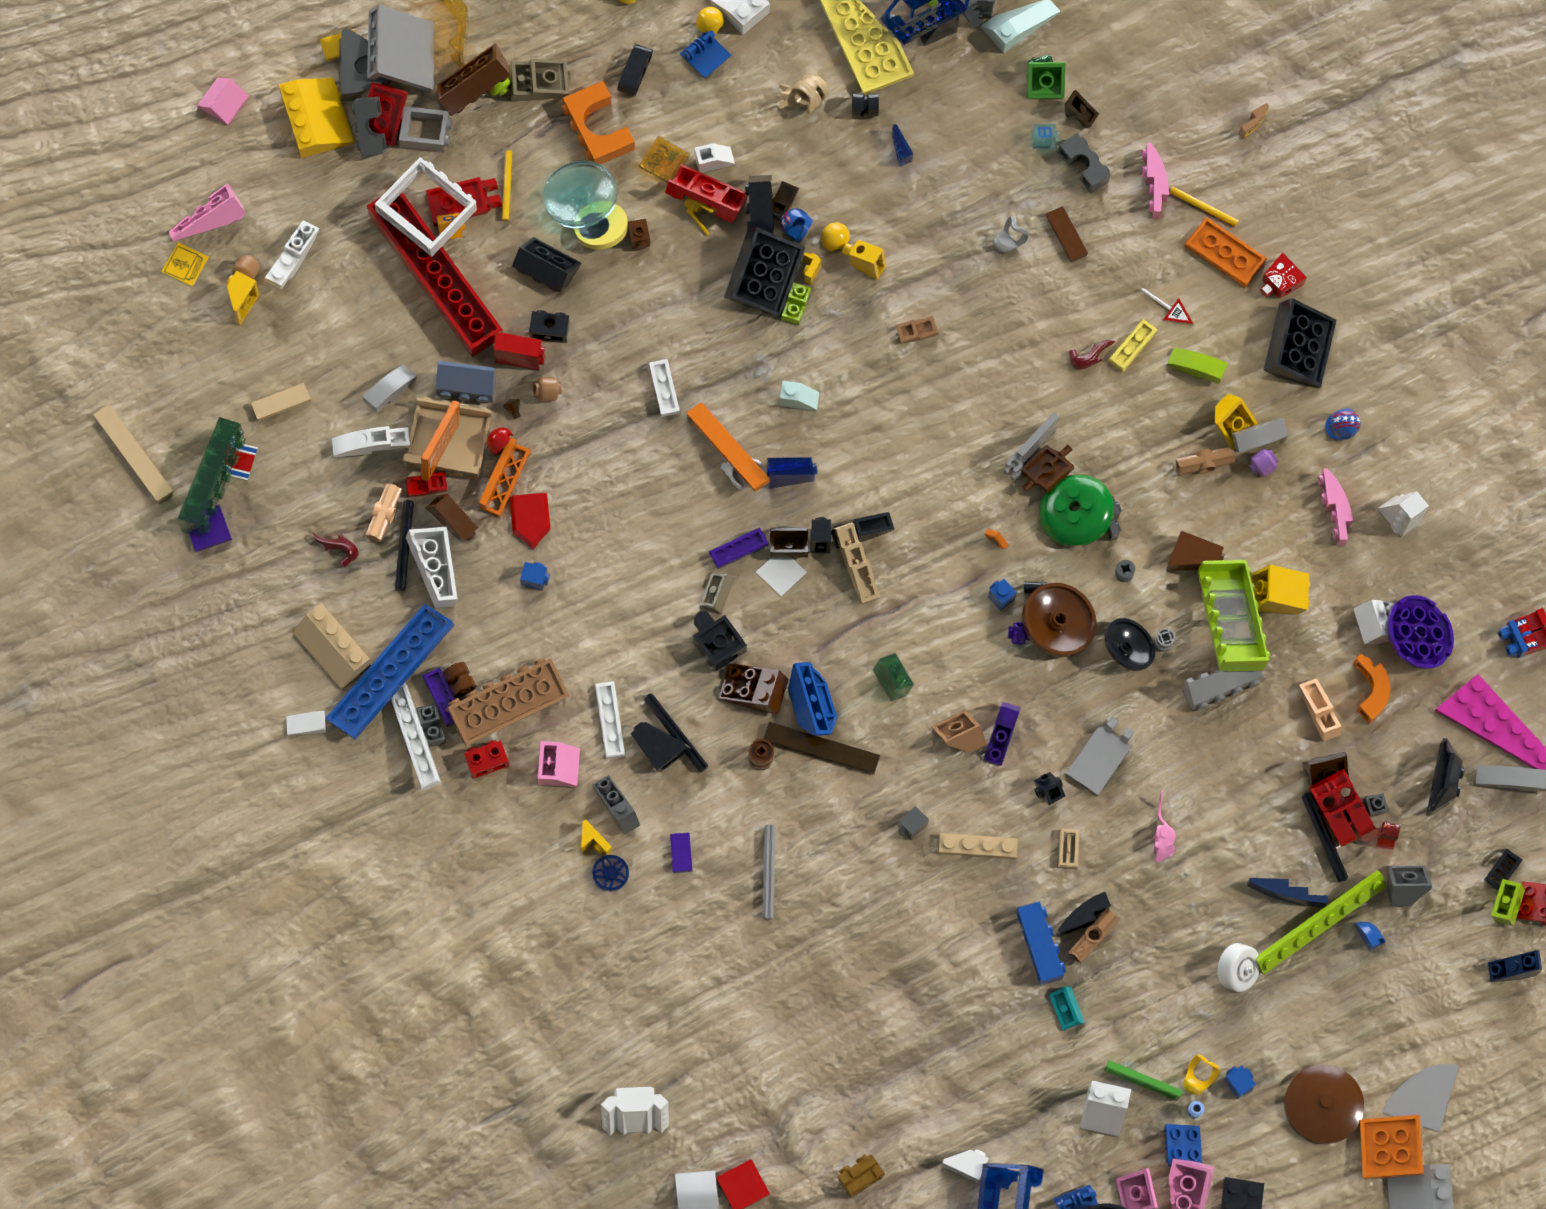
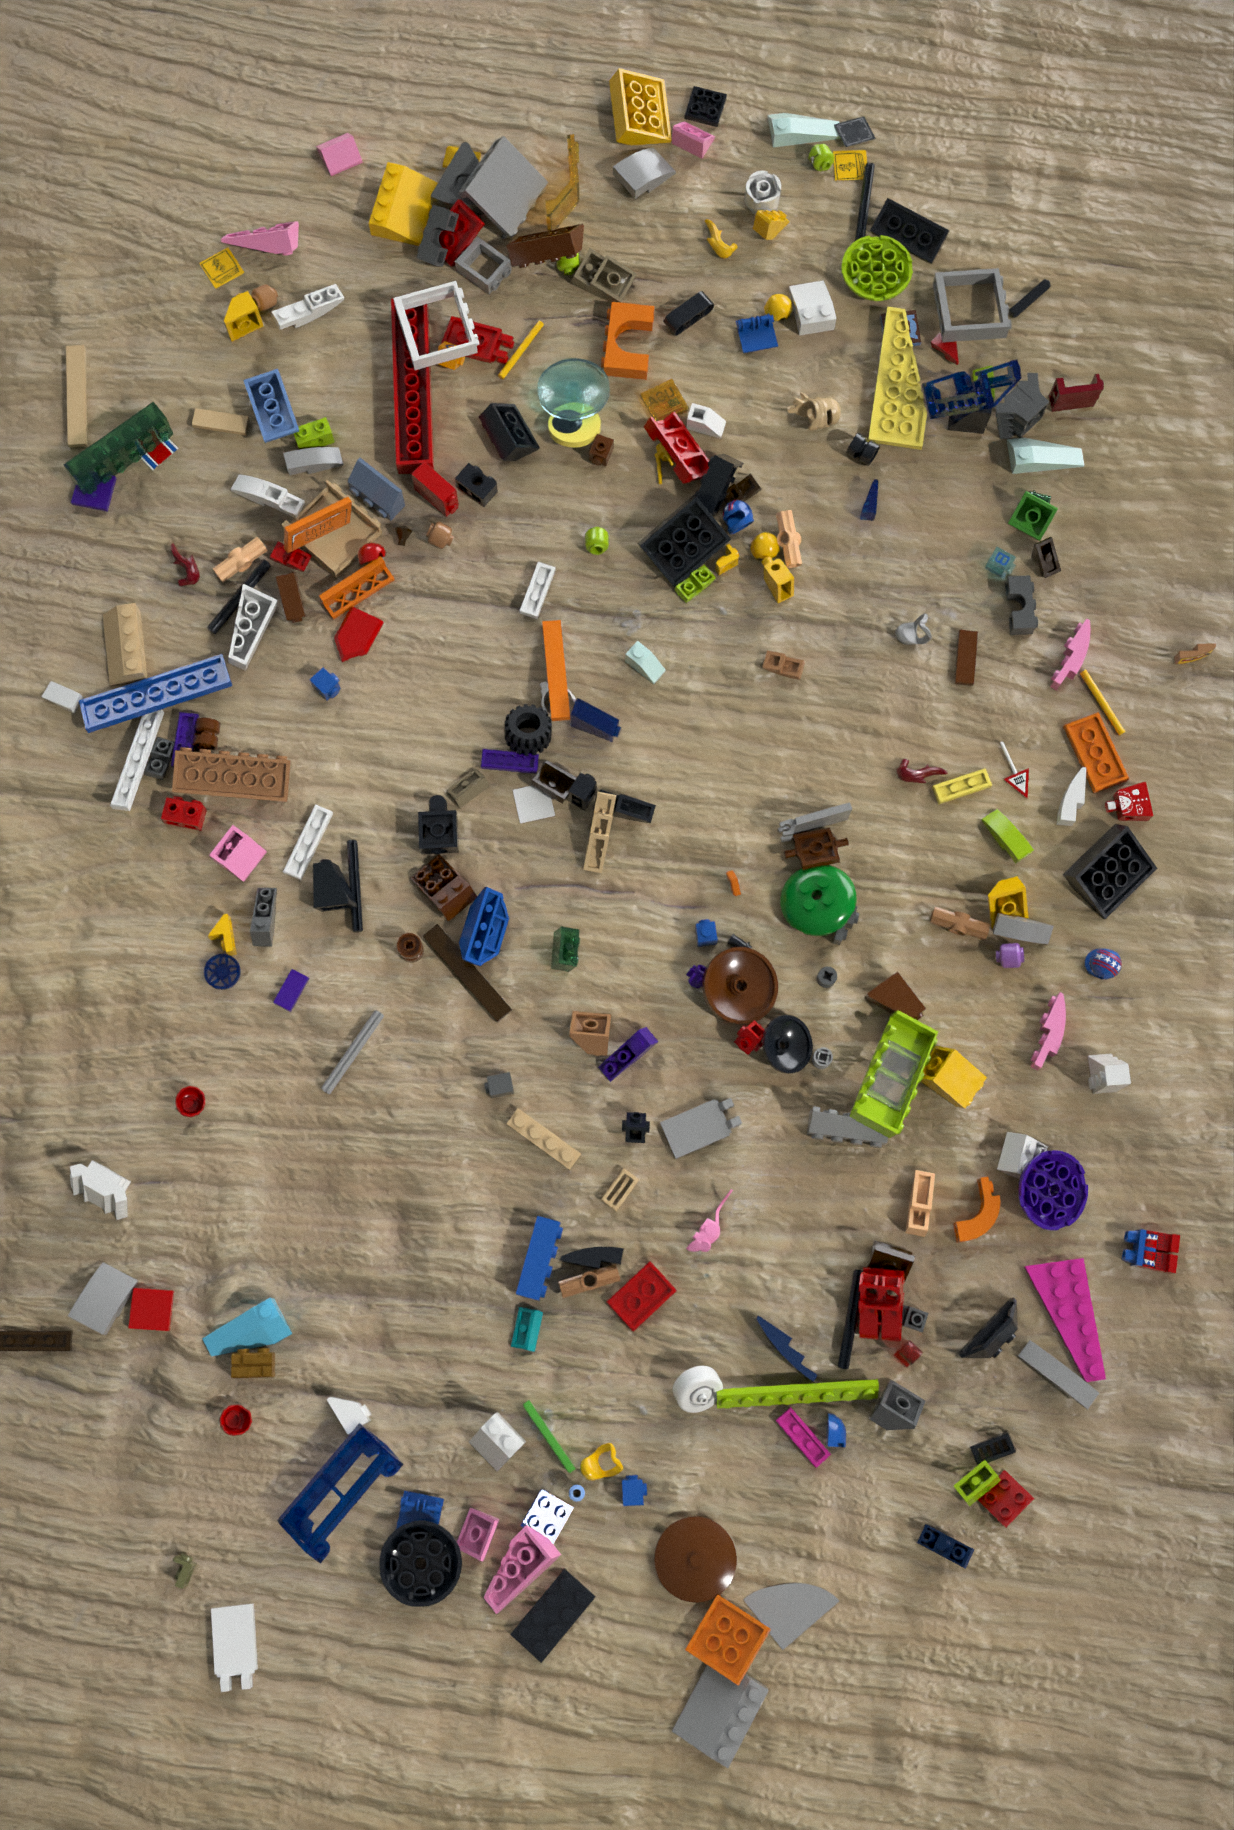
camera: 35 degrees right, 5 degrees up
(323, 361) = (271, 405): none -> medium blue slope
(375, 366) = (314, 434): none -> lime brick
(660, 995) = (190, 1101): none -> red hair
(687, 315) = (596, 540): none -> lime head
(738, 499) = (528, 717): none -> black tyre
(842, 1145) = (252, 1329): none -> medium azure wedge
(845, 211) = (789, 539): none -> light nougat piece
(1095, 658) = (750, 1038): none -> red brick
(1143, 923) = (641, 1296): none -> red tile
(1231, 302) = (1073, 799): none -> white slope
(1347, 955) = (803, 1437): none -> dark pink tile

